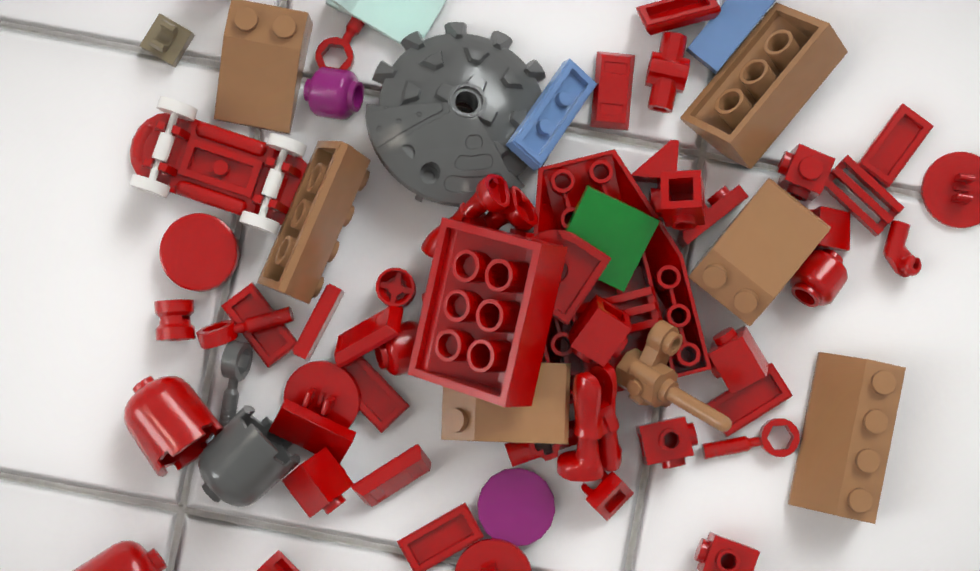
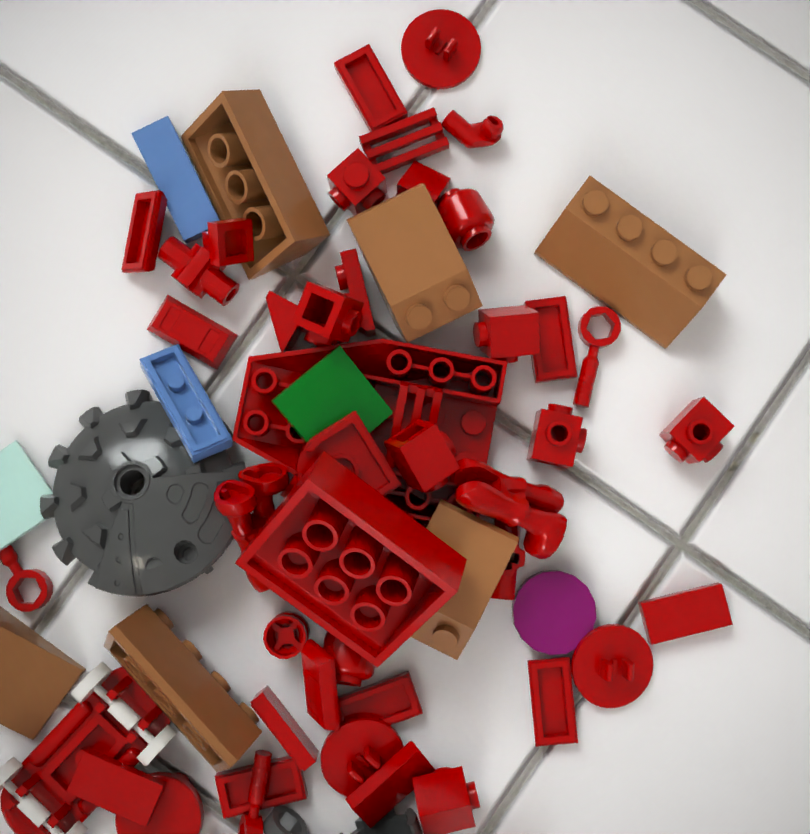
camera: 65 degrees left, 0 degrees up
(210, 205) = (116, 787): none -> red tile
(334, 93) = (63, 608): magenta head -> none
(392, 476) = (470, 722): red tile -> none
(608, 495) = (583, 517): red tile -> none
(655, 384) = (496, 424): medium nougat piece -> none
(704, 87) = (229, 241): none -> red tile

